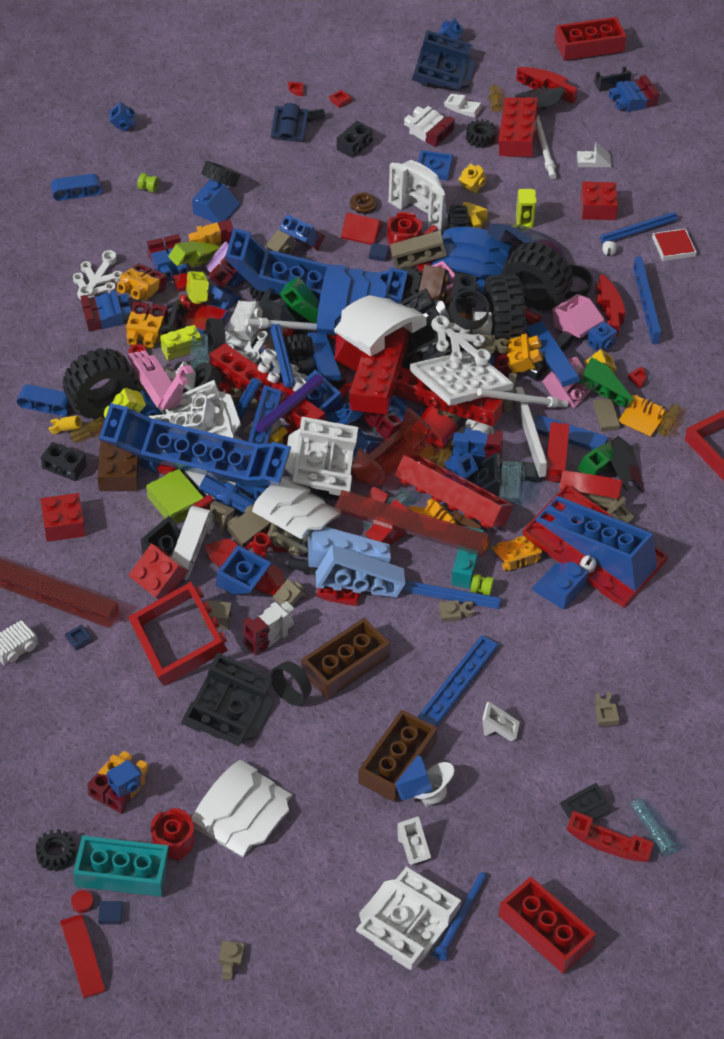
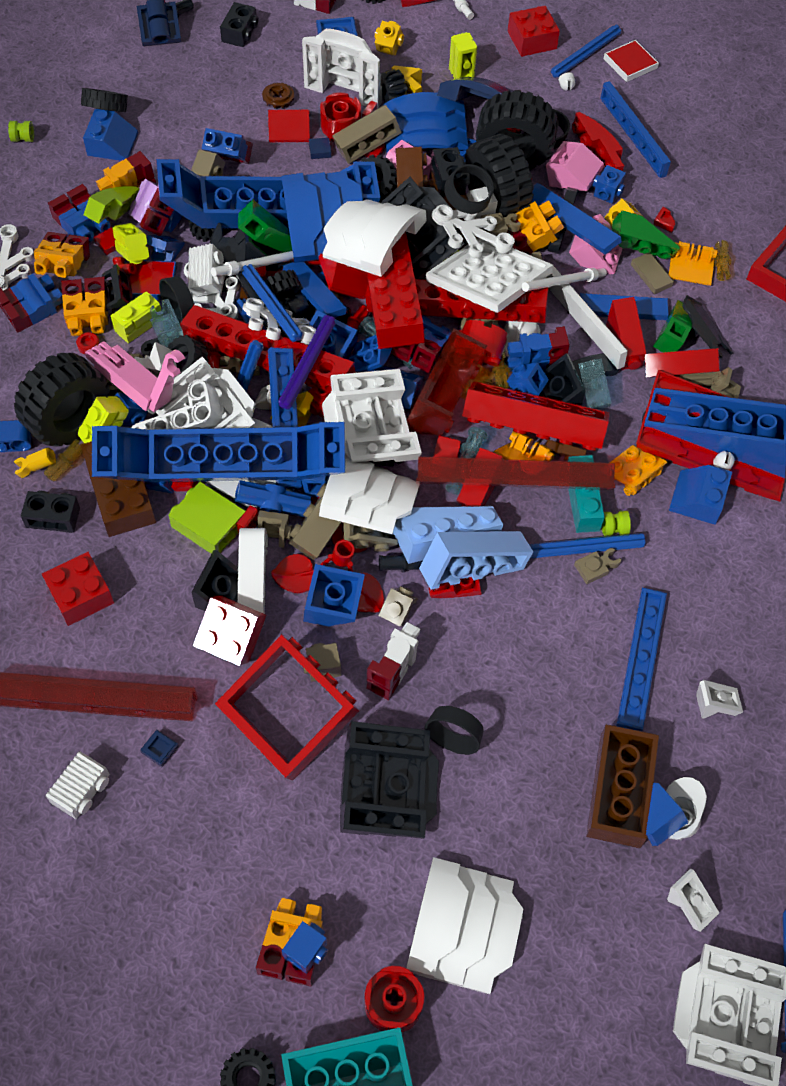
camera: 20 degrees left, 10 degrees up
(345, 658) = (503, 672): reddish brown brick -> none

